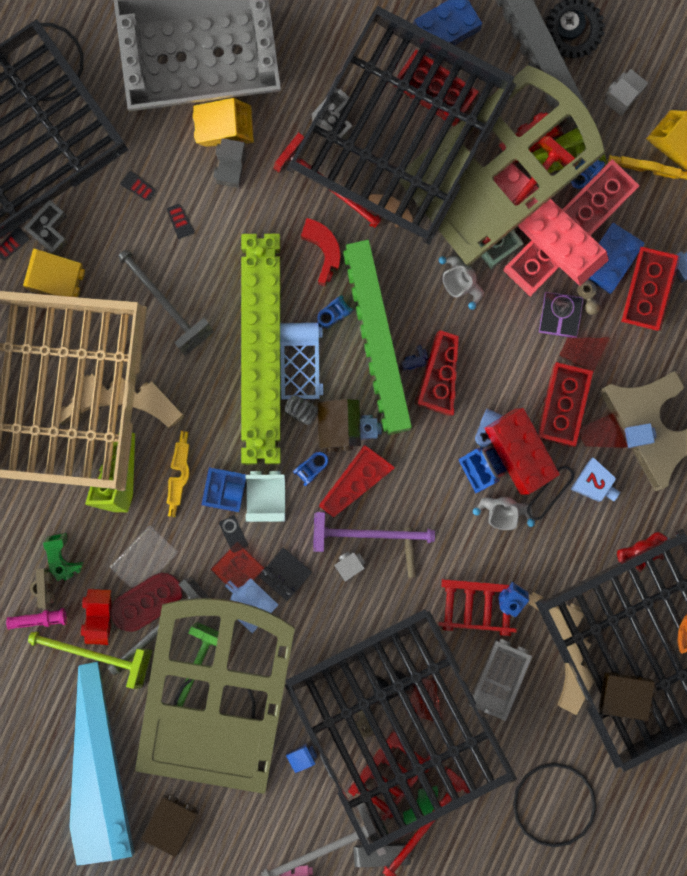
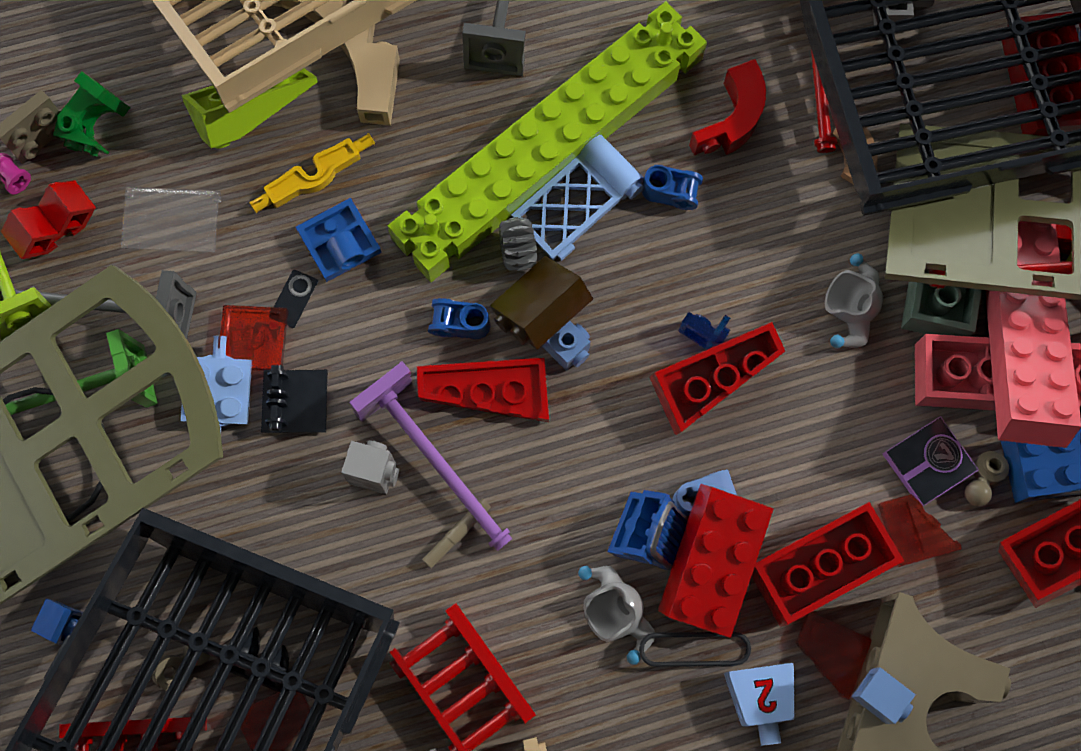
camera: 45 degrees right, 10 degrees down
(145, 601) = (94, 248): dark red tile -> none
(265, 497) = (373, 296): light aqua panel -> none
(378, 337) = (688, 260): bright green brick -> none
(513, 599) = (509, 721): blue brick -> none

